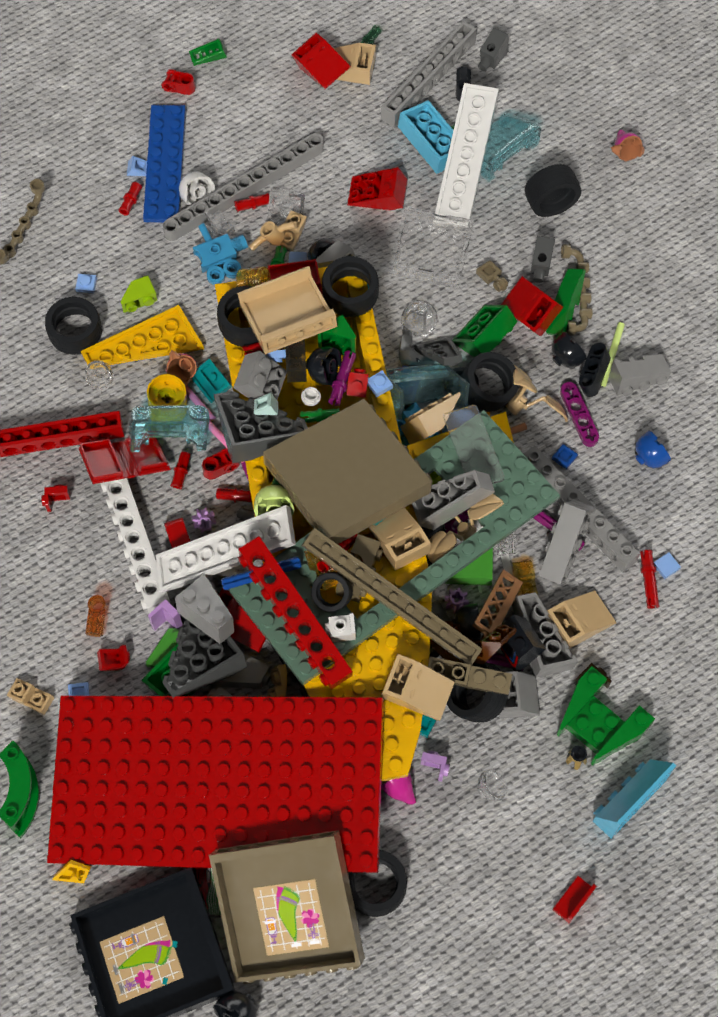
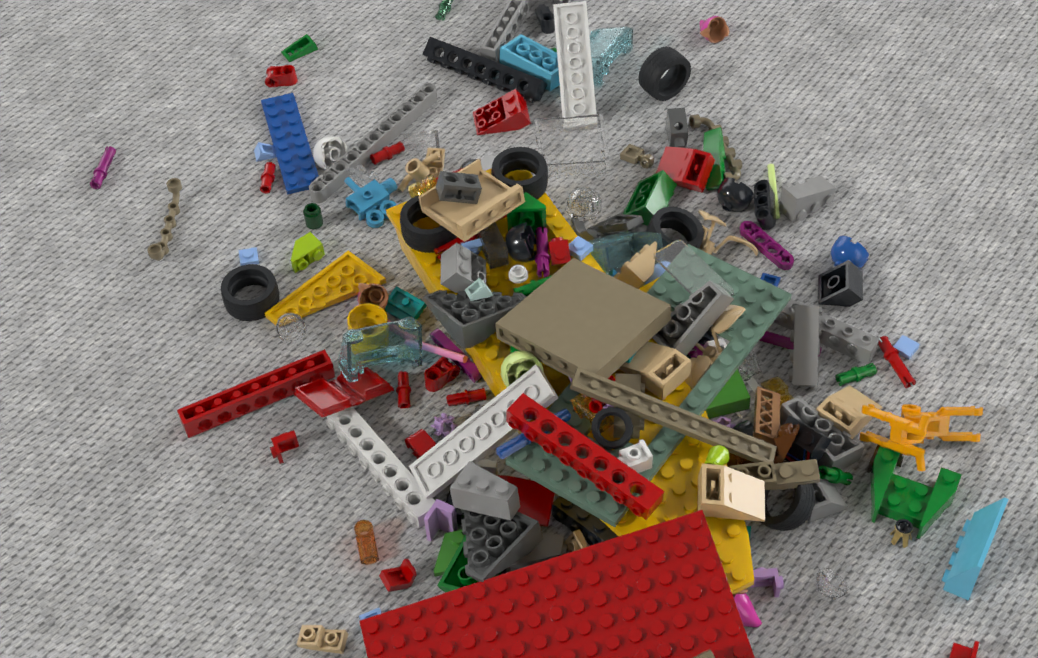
camera: 15 degrees left, 15 degrees down
(157, 257) = (313, 216): none -> dark green brick
(277, 295) = (458, 187): none -> dark grey brick
(320, 61) = (408, 27): red slope -> none
(335, 96) = (435, 47): none -> black brick
(361, 60) = (437, 23): tan slope -> none
(418, 647) = (717, 455): none -> lime cone
(538, 681) = (835, 475): none -> green pin
(606, 580) = (856, 374): none -> green pin
(631, 482) = (841, 285): none -> black slope
(633, 656) = (915, 426): none -> light orange piece

